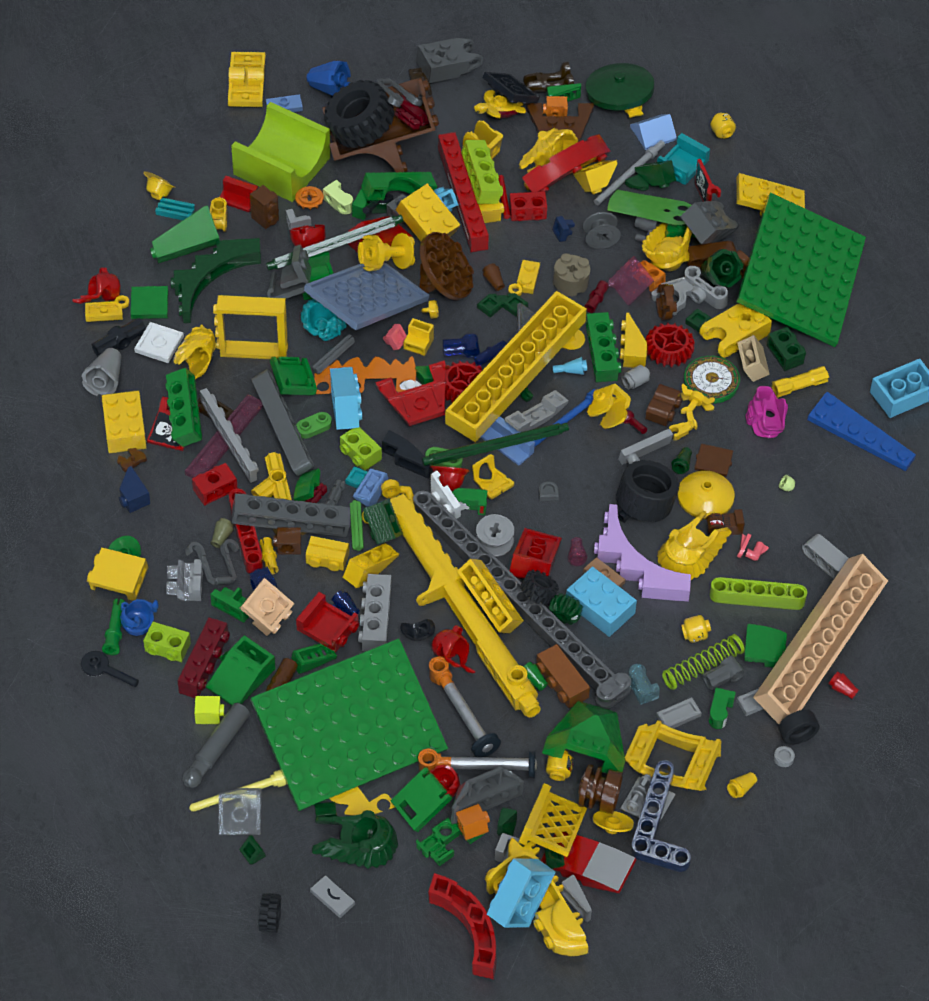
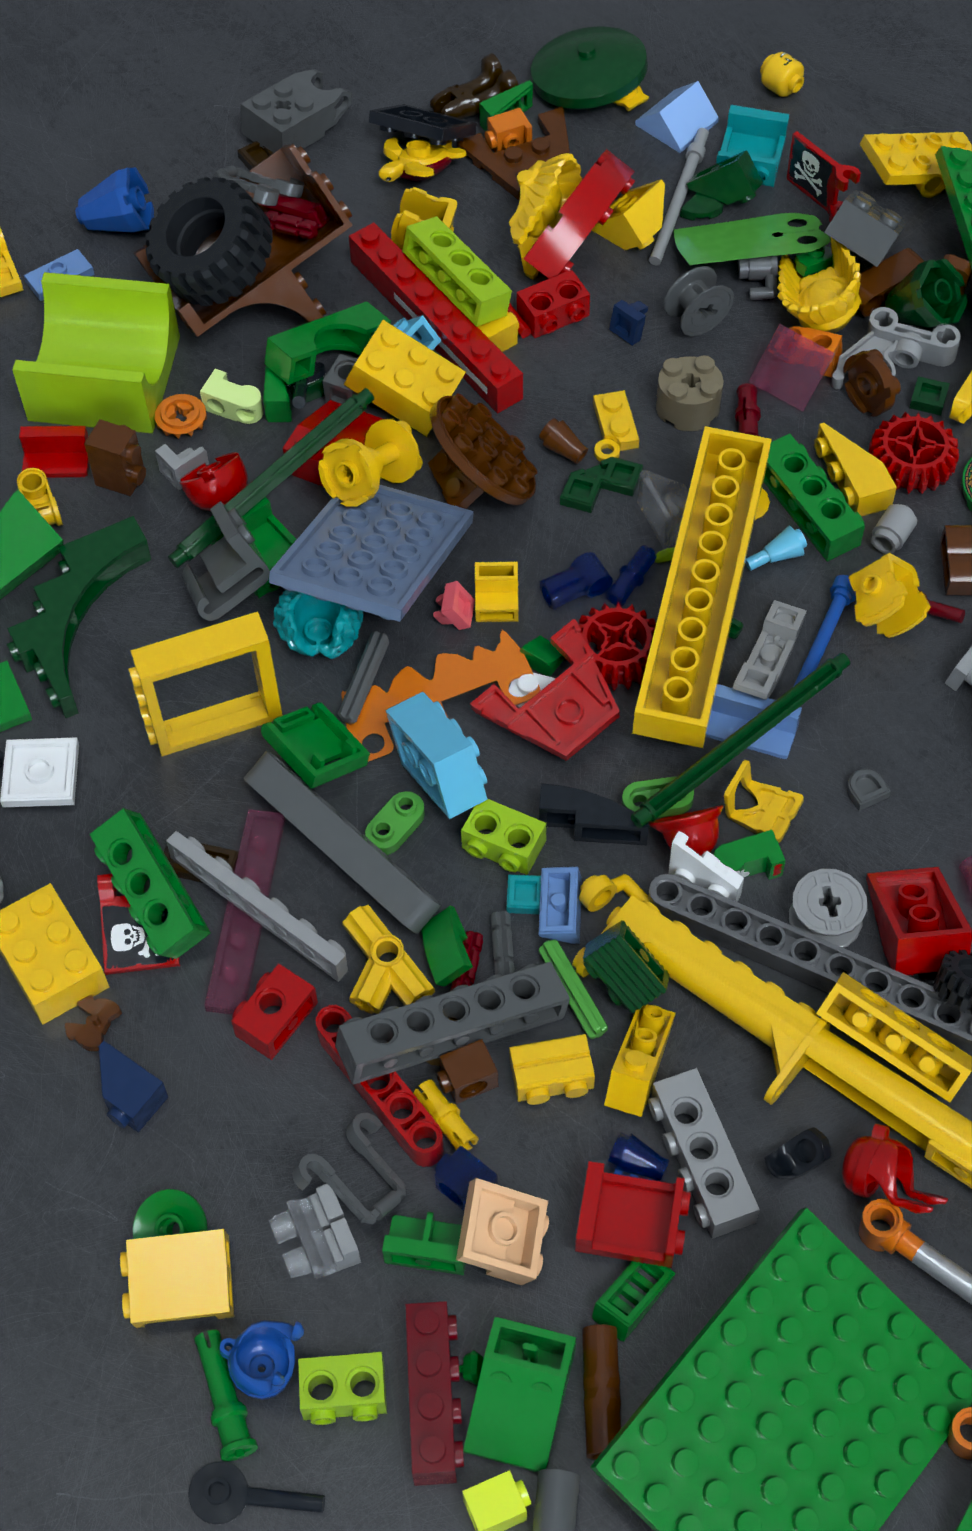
camera: 20 degrees left, 5 degrees up
(197, 350) = (120, 764): yellow head -> none
(222, 531) = (334, 1104): olive cone -> none
(432, 309) = (491, 534): yellow tile -> none

